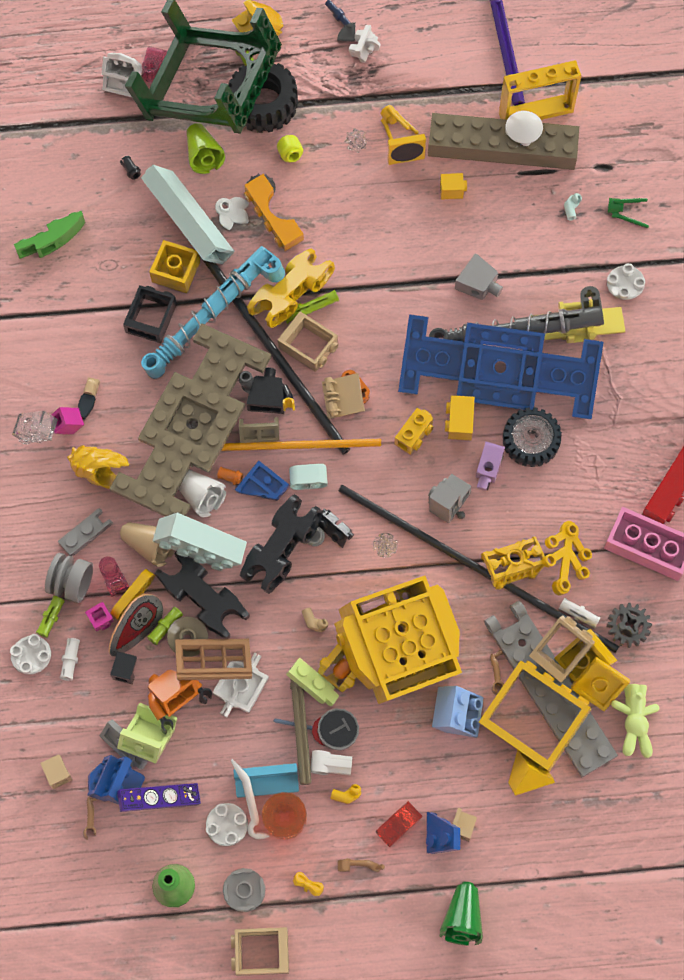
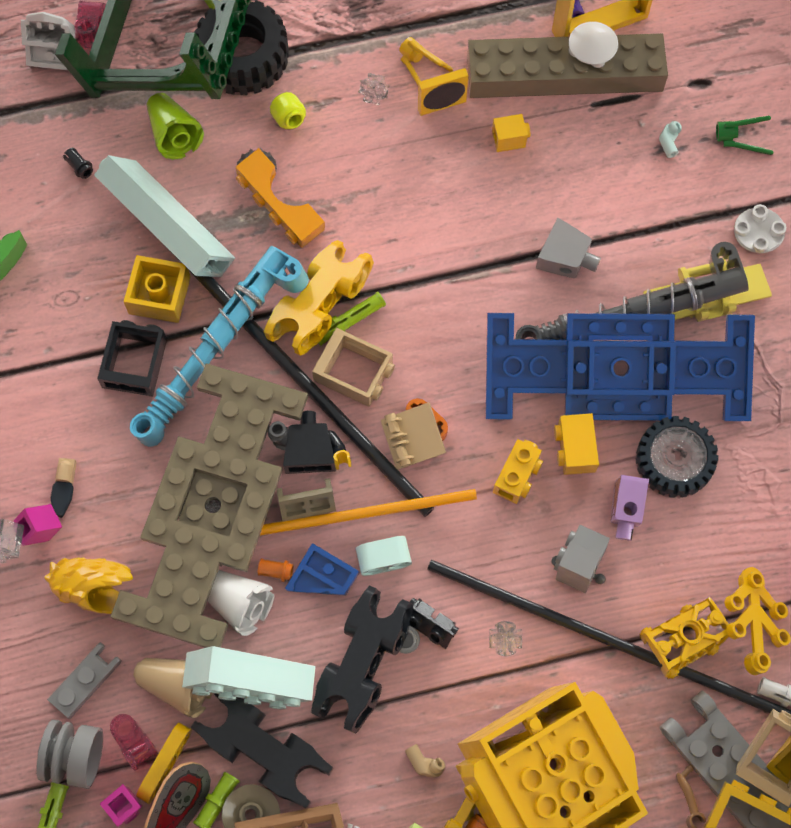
camera: 10 degrees left, 0 degrees up
(234, 213) = (227, 204): white plate -> none

